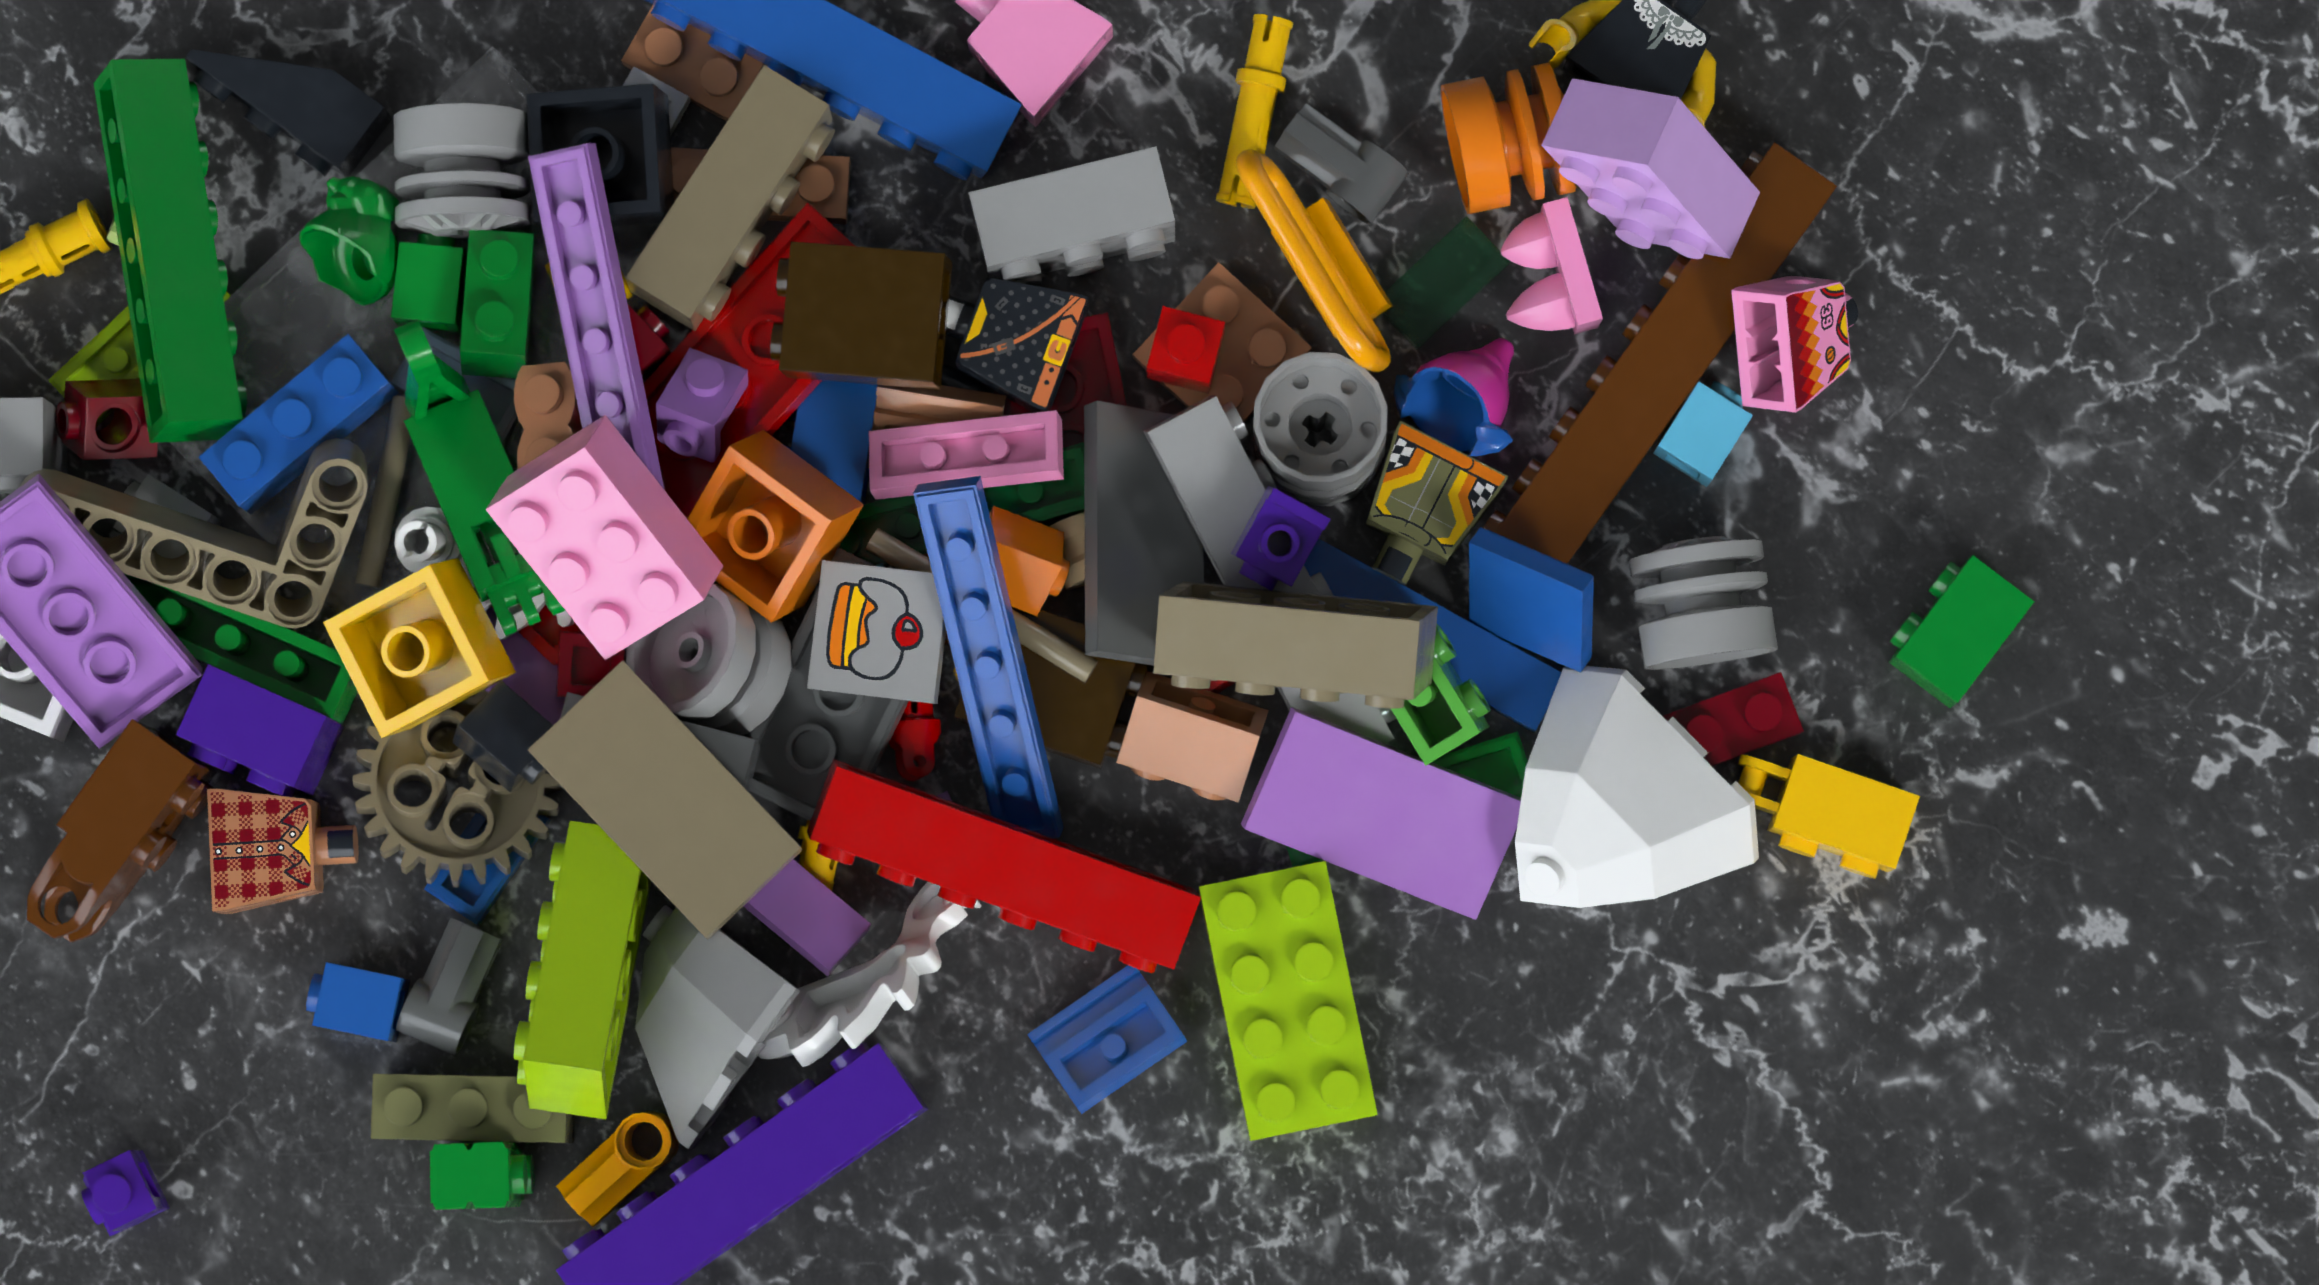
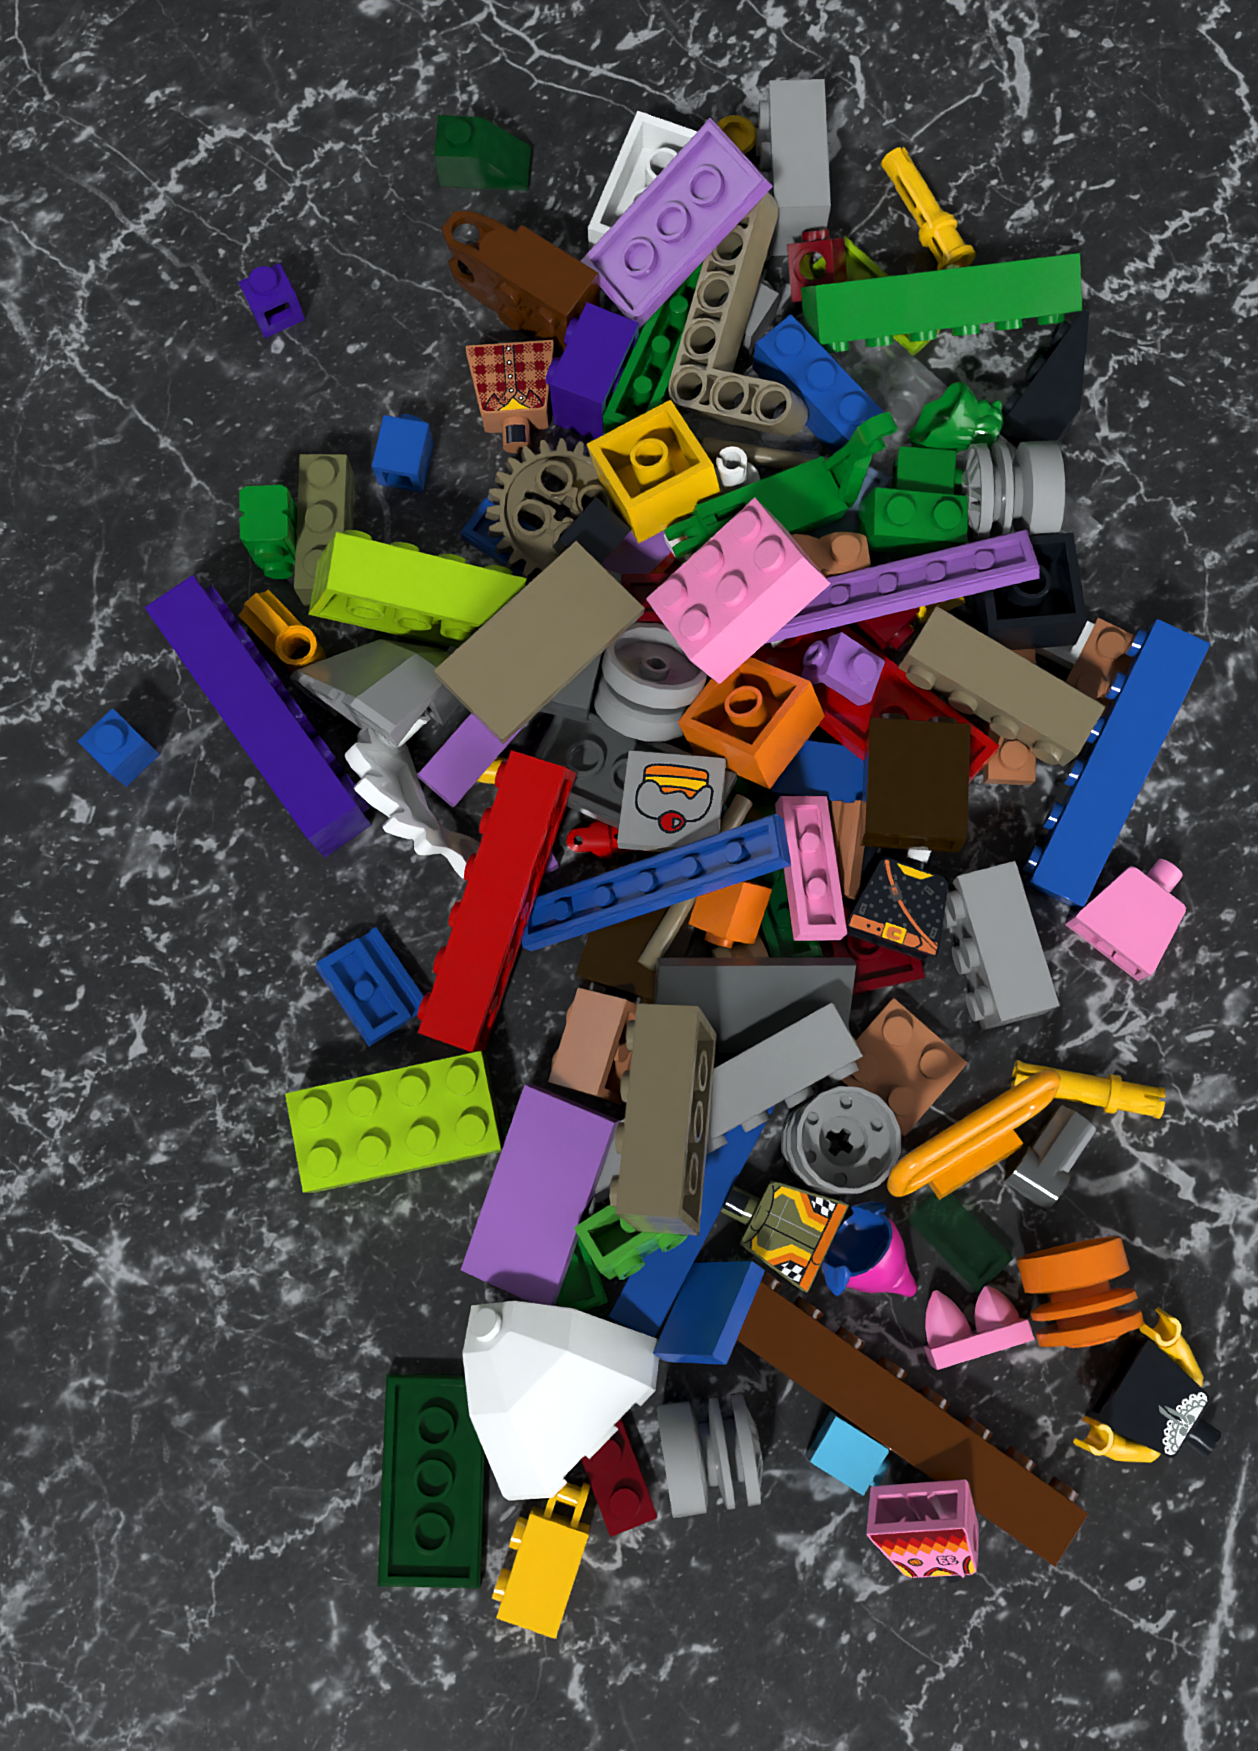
camera: 90 degrees right, 5 degrees down
(444, 1002) = (403, 510): dark grey piece -> none
(1185, 349) = (898, 1034): red brick -> none
(1275, 513) = (769, 1109): dark purple brick -> none
(1650, 169) = (1064, 1410): lavender brick -> none
(1736, 956) = (430, 1485): none -> dark green tile
(1959, 631) = (693, 1670): green brick -> none

